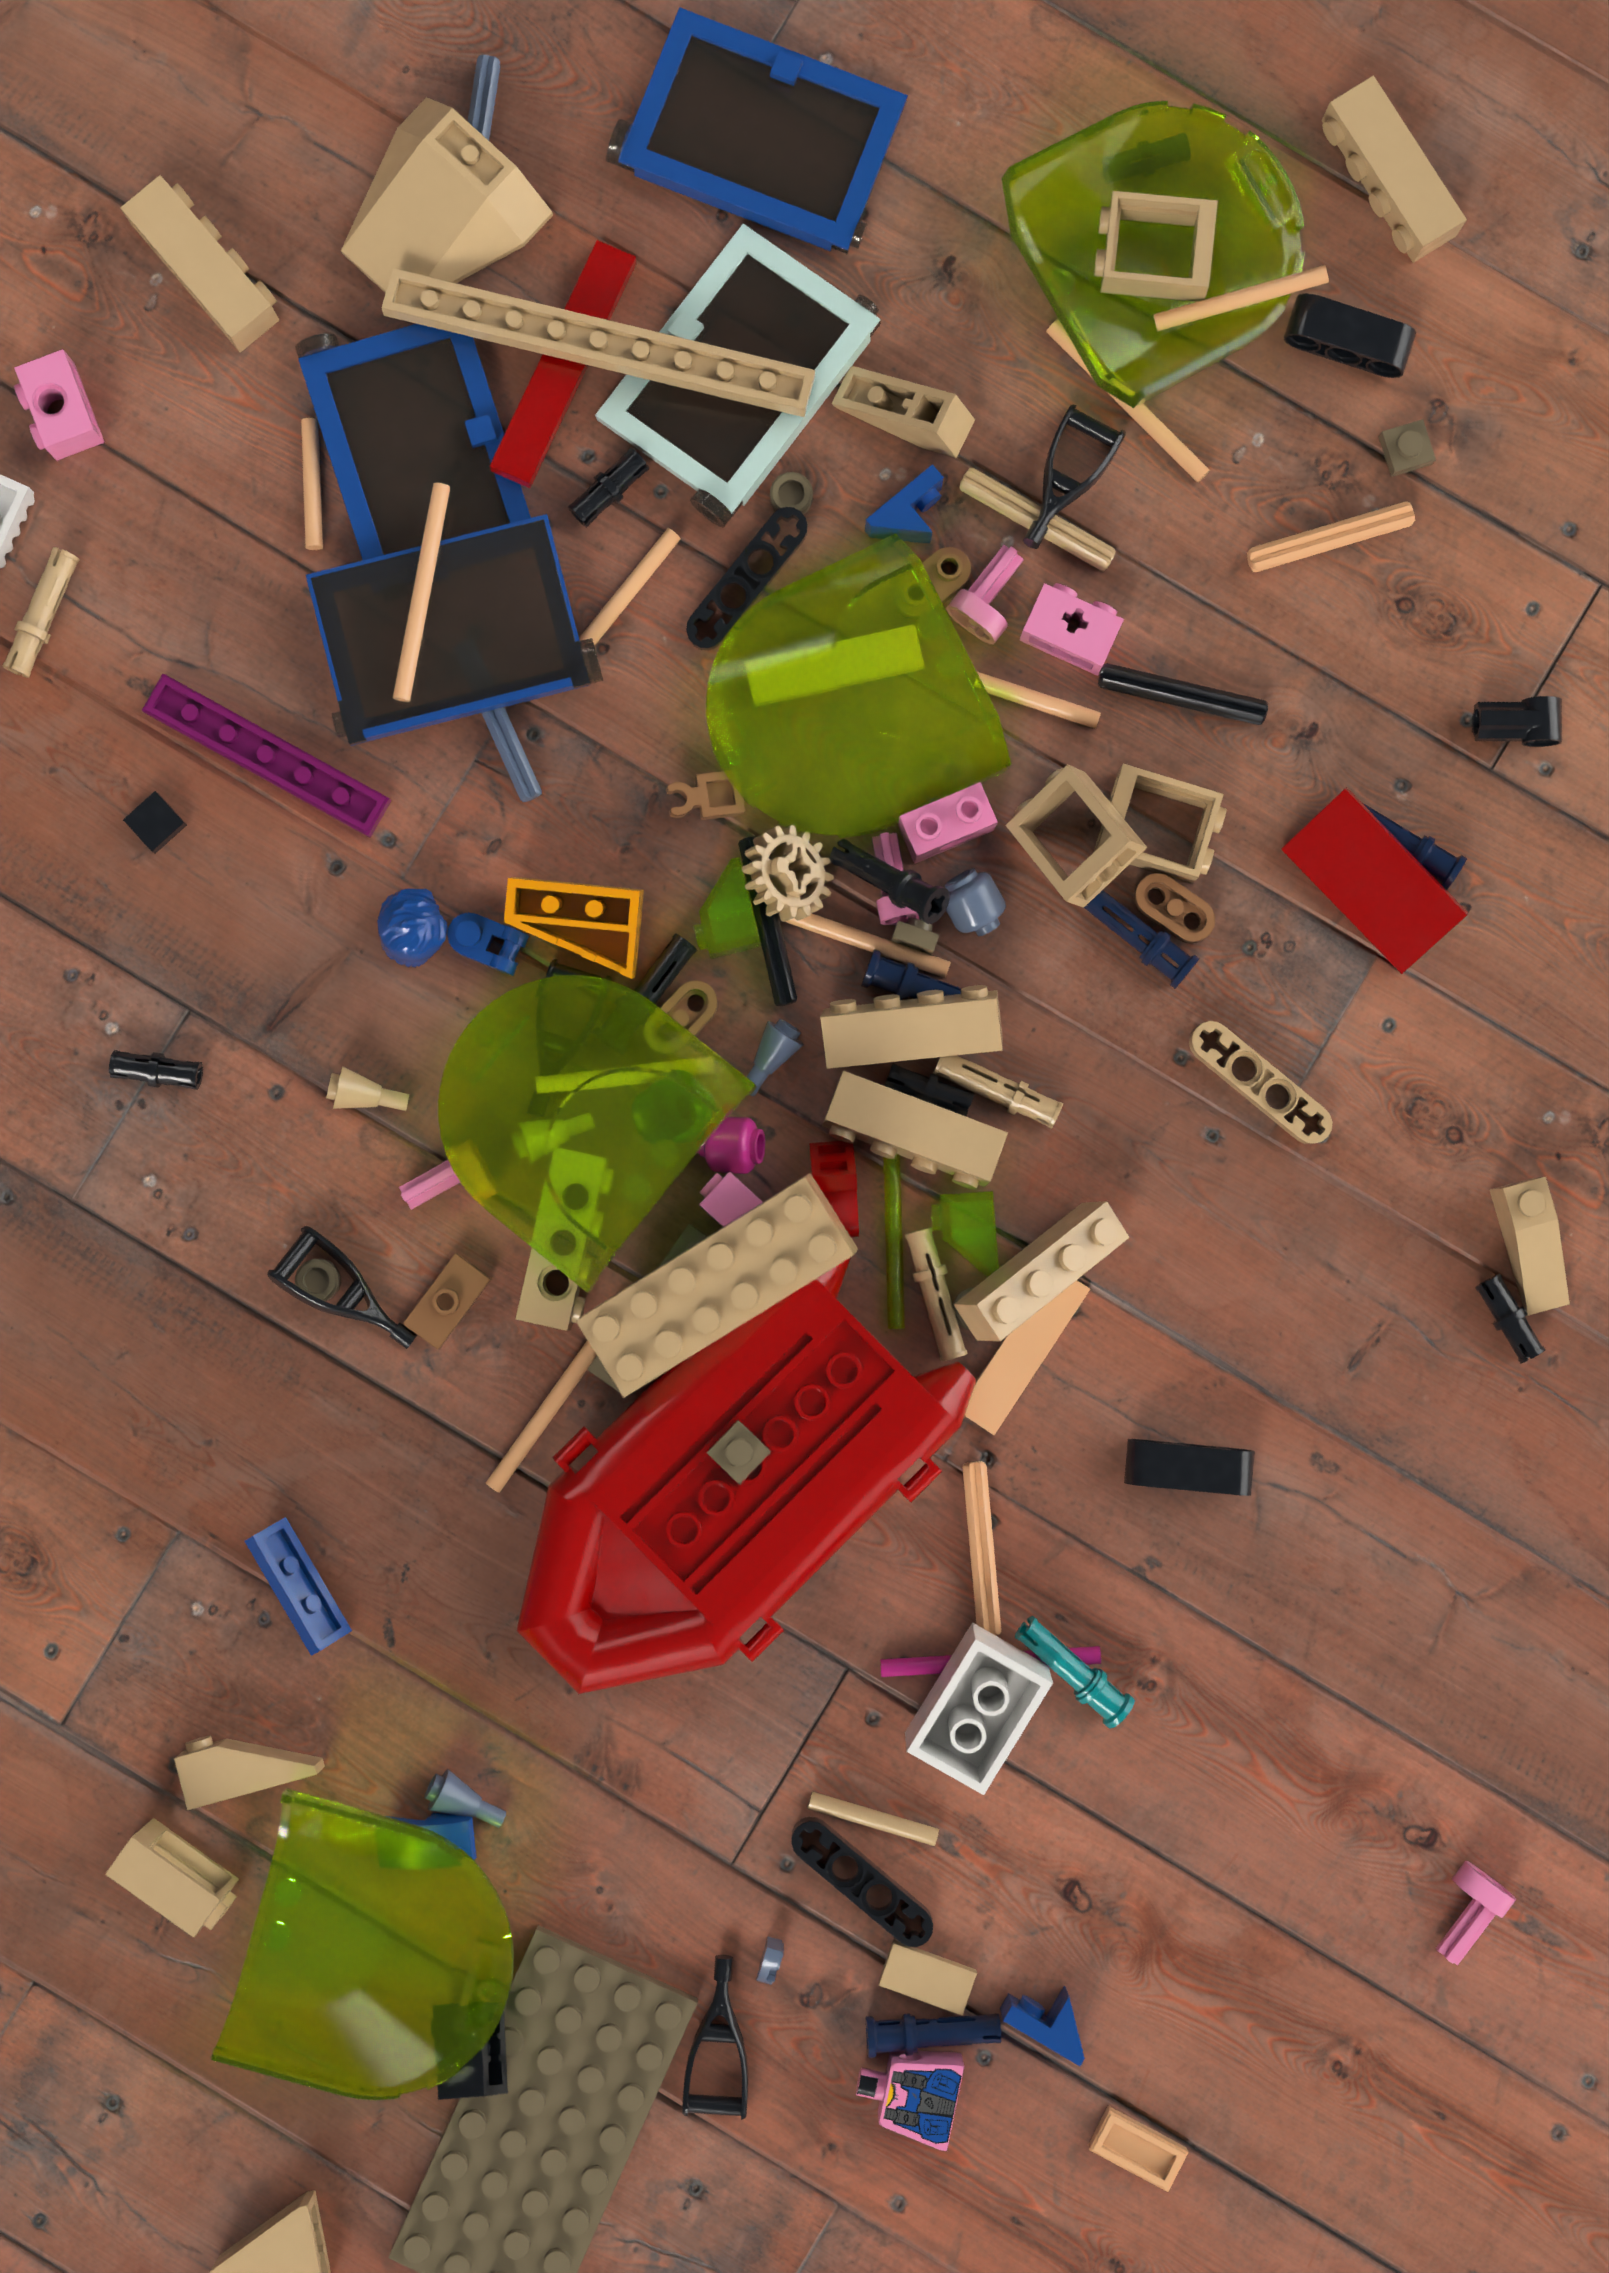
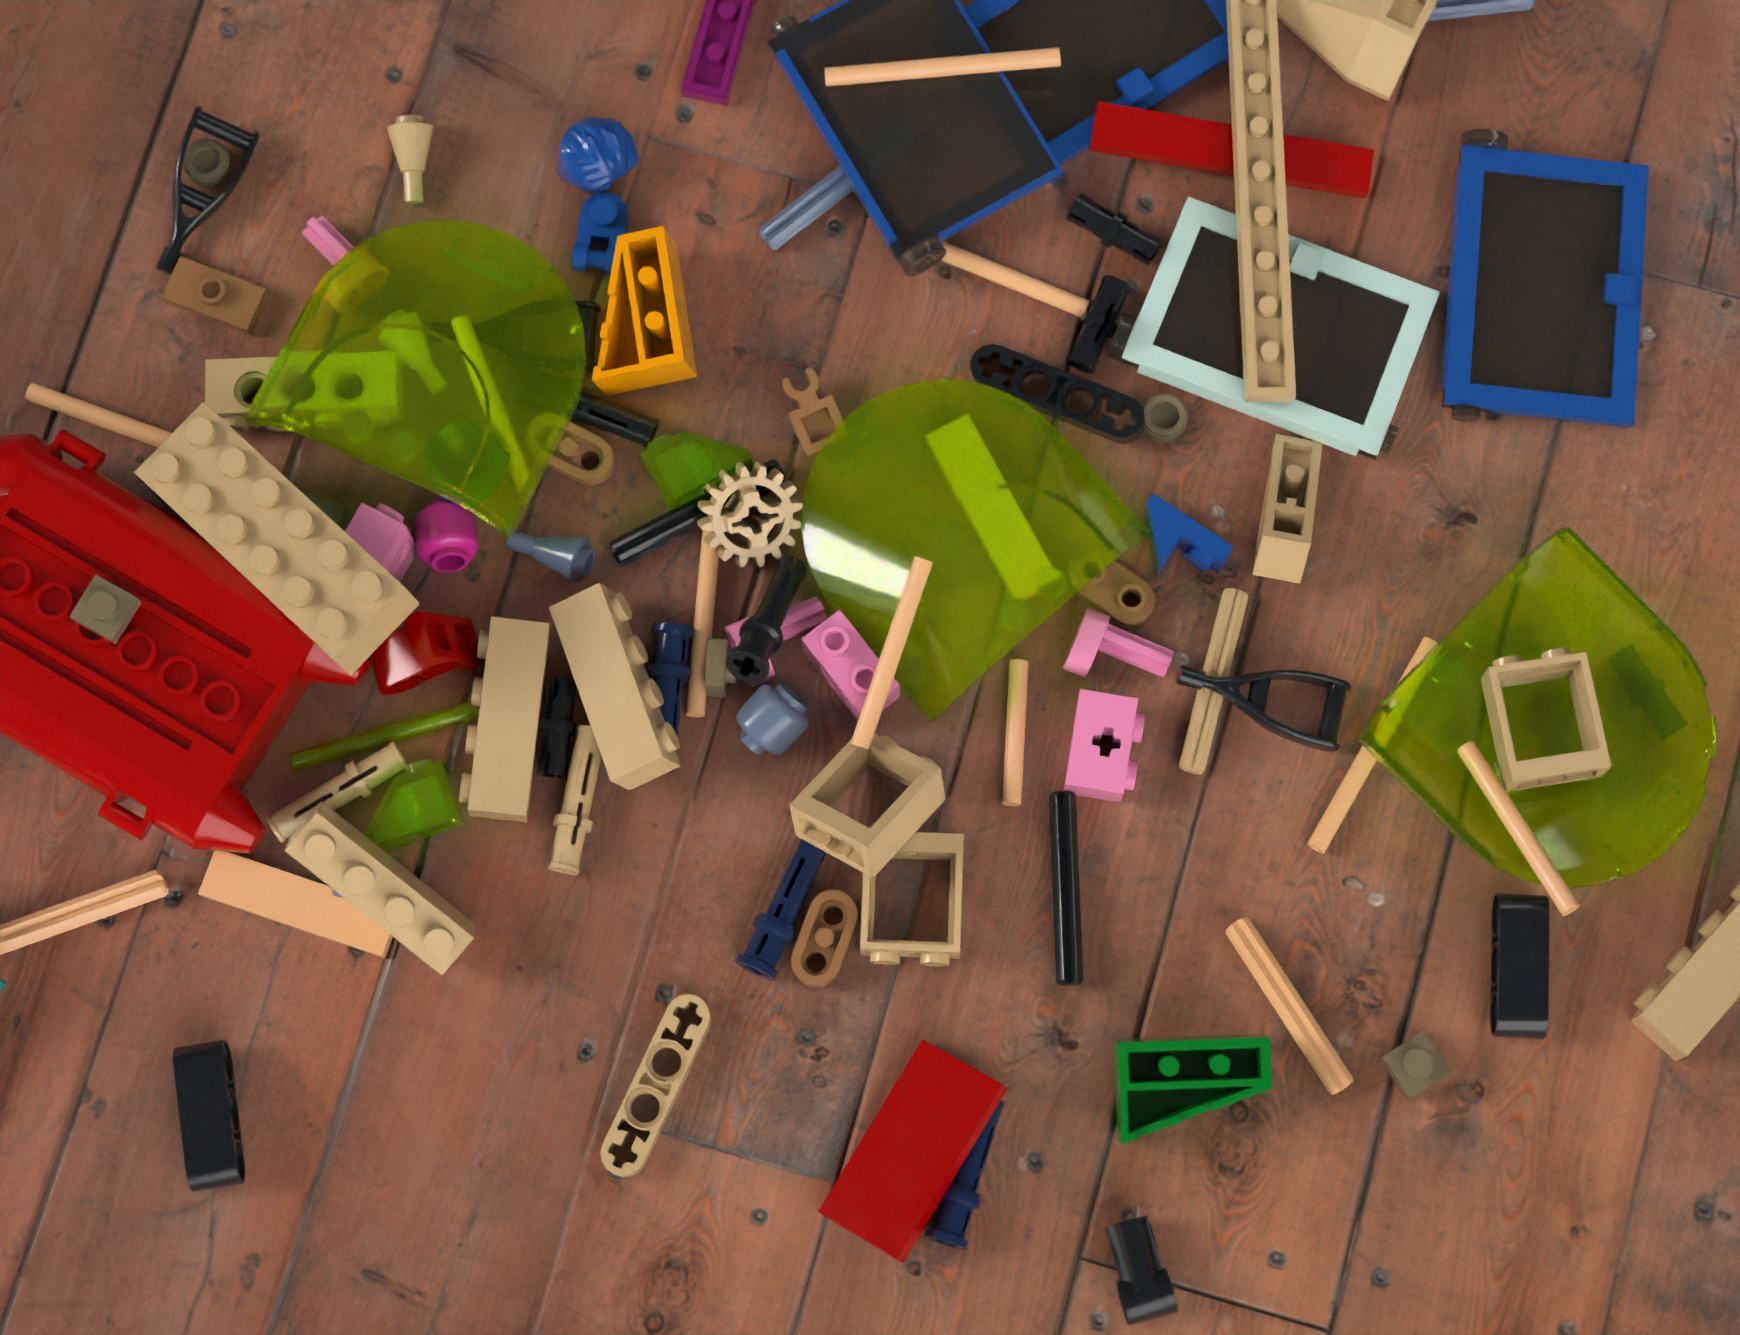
camera: 80 degrees right, 10 degrees down
(692, 526) = (1098, 324): none -> black pin
(956, 778) = (891, 652): none -> light nougat bar
(1372, 638) = (1184, 1076): none -> green wedge

